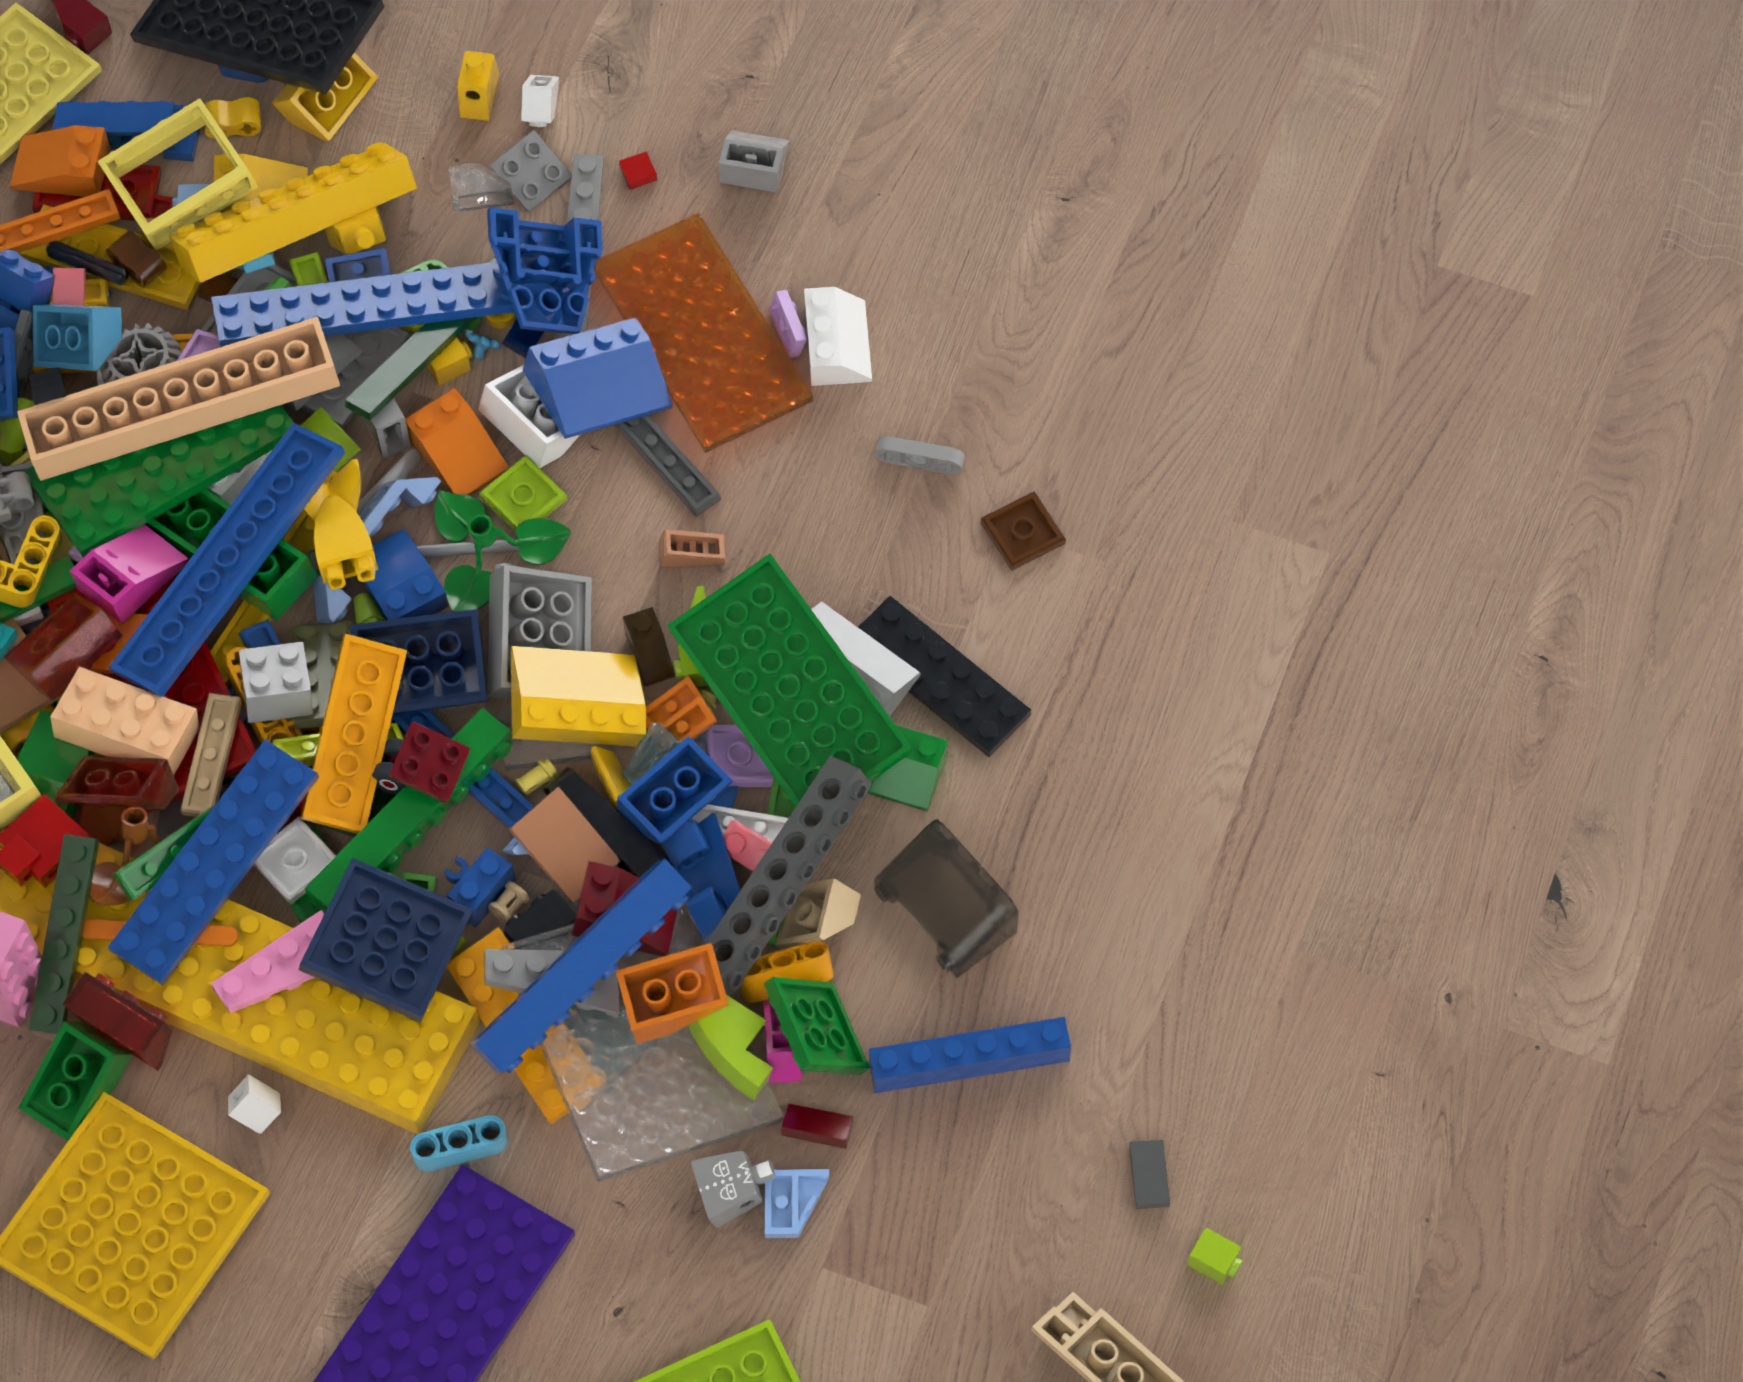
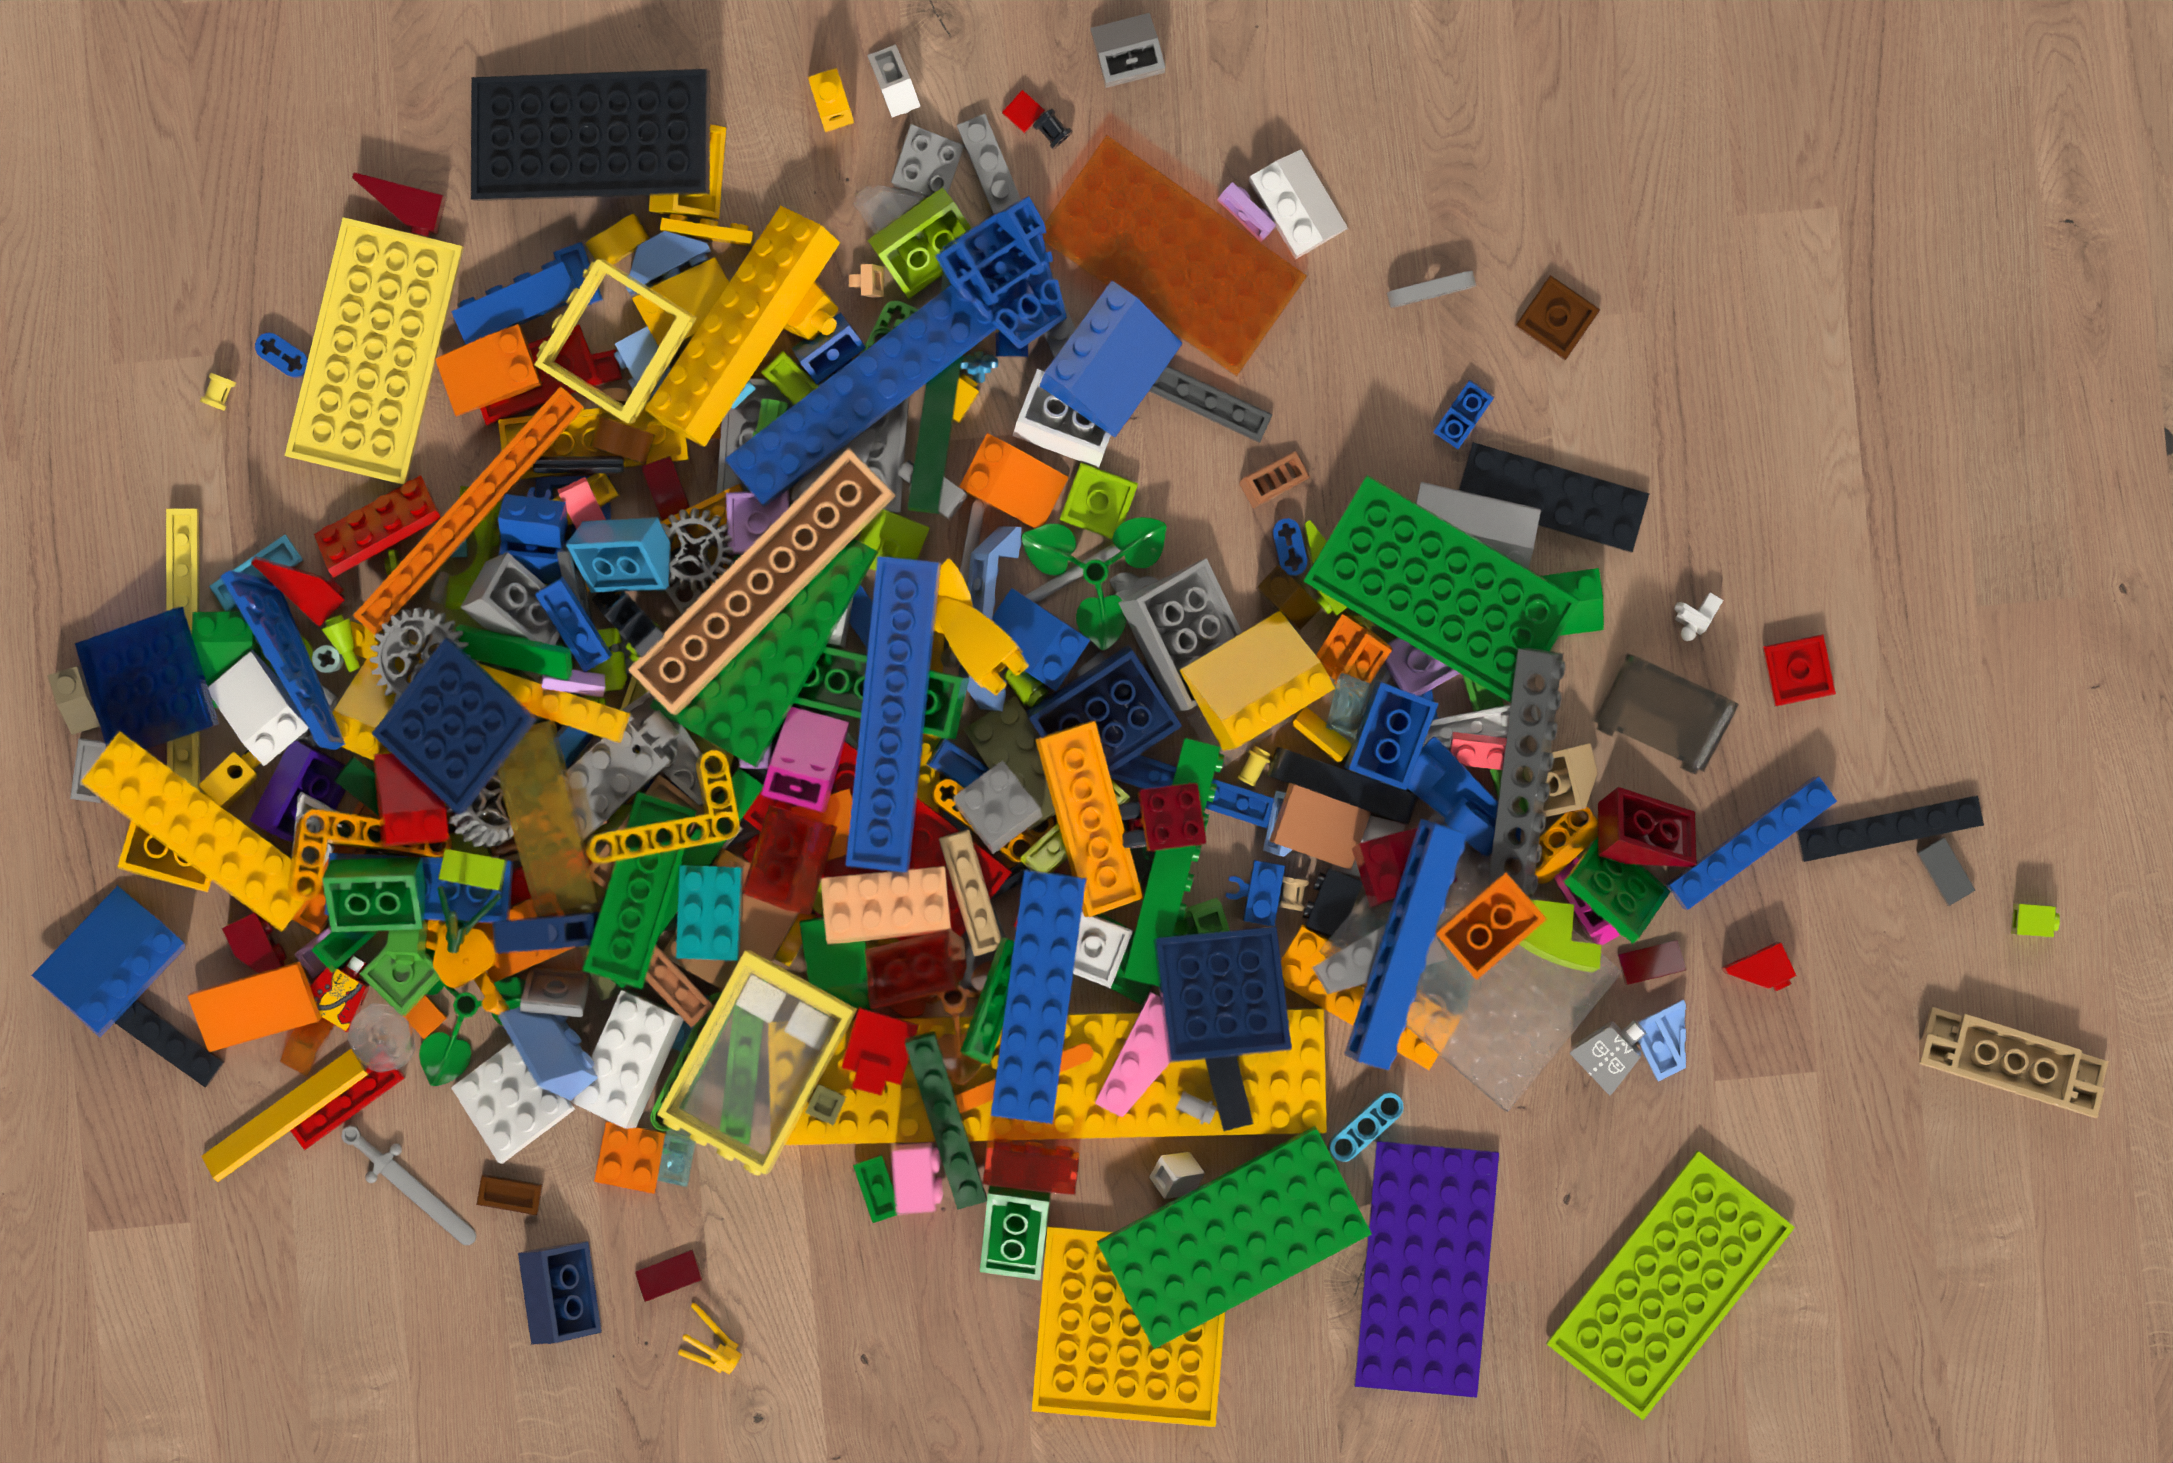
camera: 30 degrees left, 25 degrees up
(152, 307) = (665, 487): none -> dark red slope
(267, 140) = (664, 256): none -> medium blue slope
(271, 1177) = (1234, 1237): none -> green plate
(307, 139) = (708, 230): none -> yellow plate
(308, 1039) = (1196, 1107): none -> light grey pin
(343, 1033) = (1229, 1092): none -> black tile
(427, 236) = (869, 281): none -> light nougat tile
(469, 225) = (914, 239): none -> lime slope
(655, 190) = (1052, 128): none -> black bush
(668, 608) = (1297, 546): none -> blue beam
(872, 993) = (1645, 830): none -> dark red slope
(895, 572) = (1463, 414): none -> blue slope
(921, 1176) = (1764, 967): none -> red slope
(1021, 836) = (1695, 620): none -> white piece
(1095, 924) = (1798, 670): none -> red plate
(1113, 1109) = (1890, 828): none -> black plate

